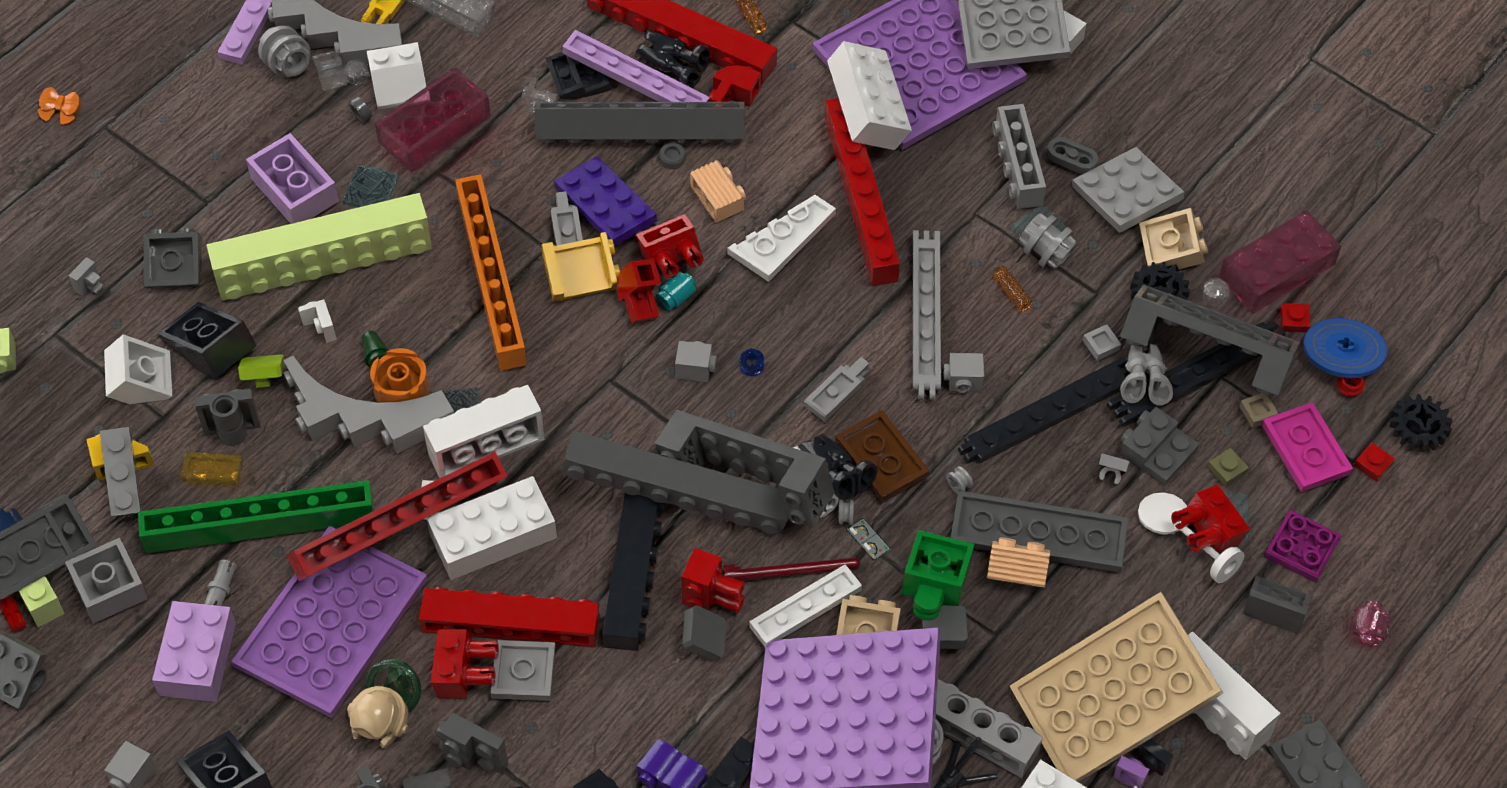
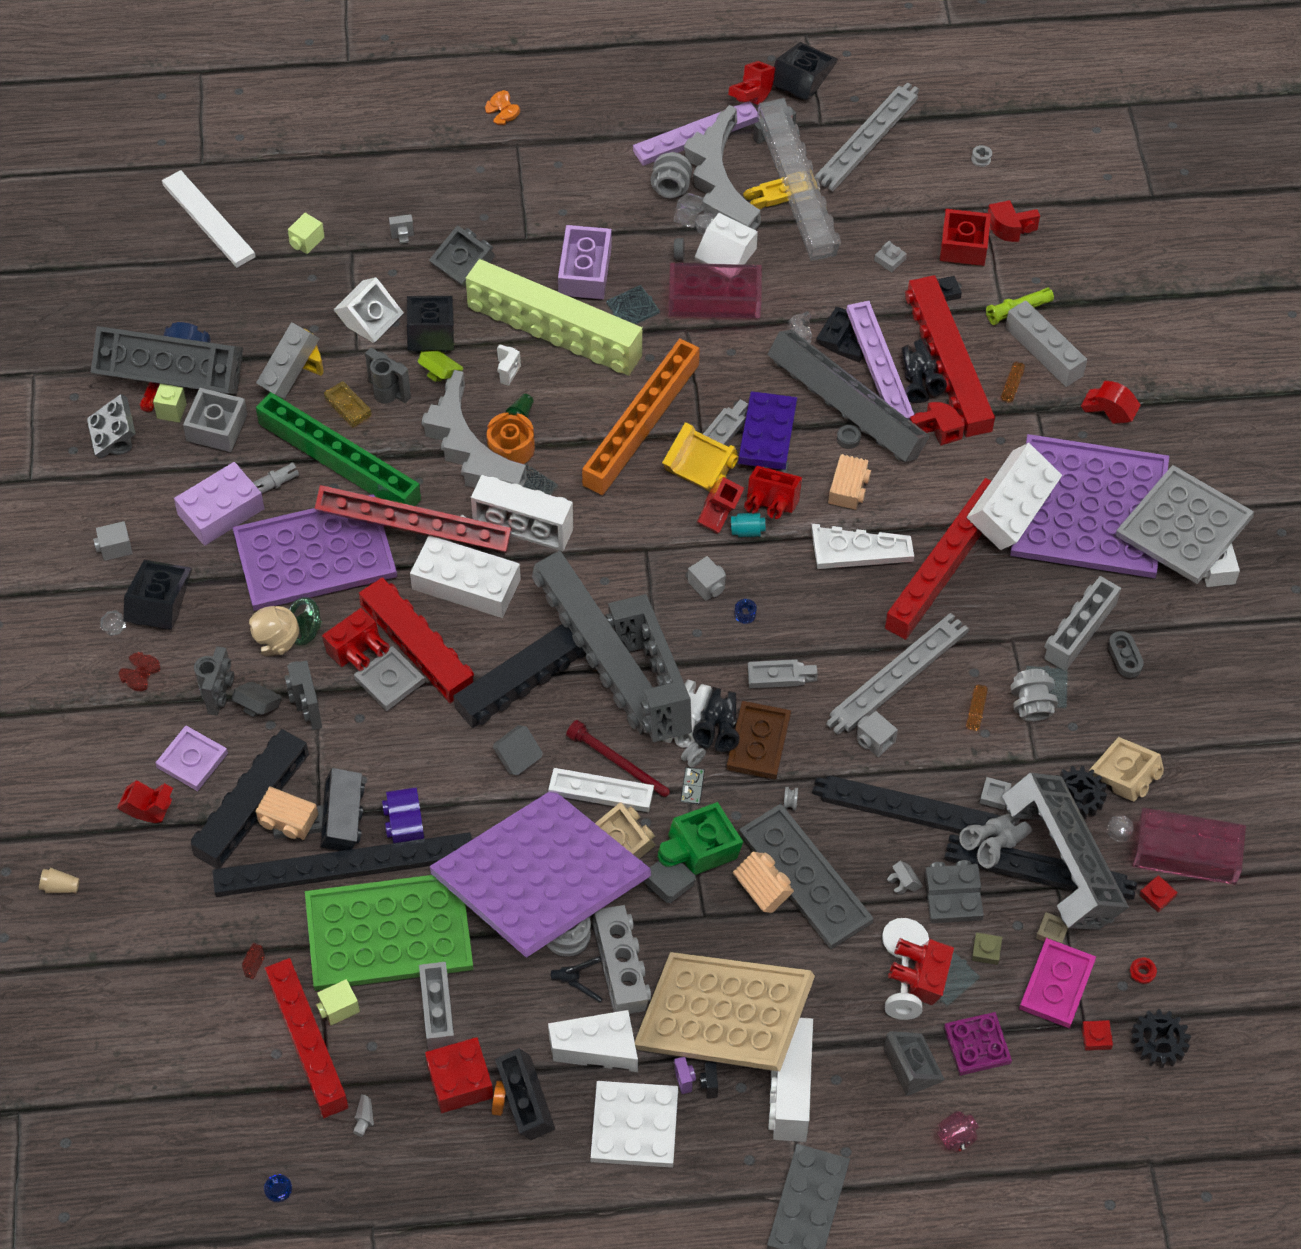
camera: 45 degrees right, 0 degrees up
(706, 585) = (550, 721): red brick -> none
(1128, 189) = (1138, 708): light grey plate -> none
(1363, 351) = (1160, 926): blue piece -> none

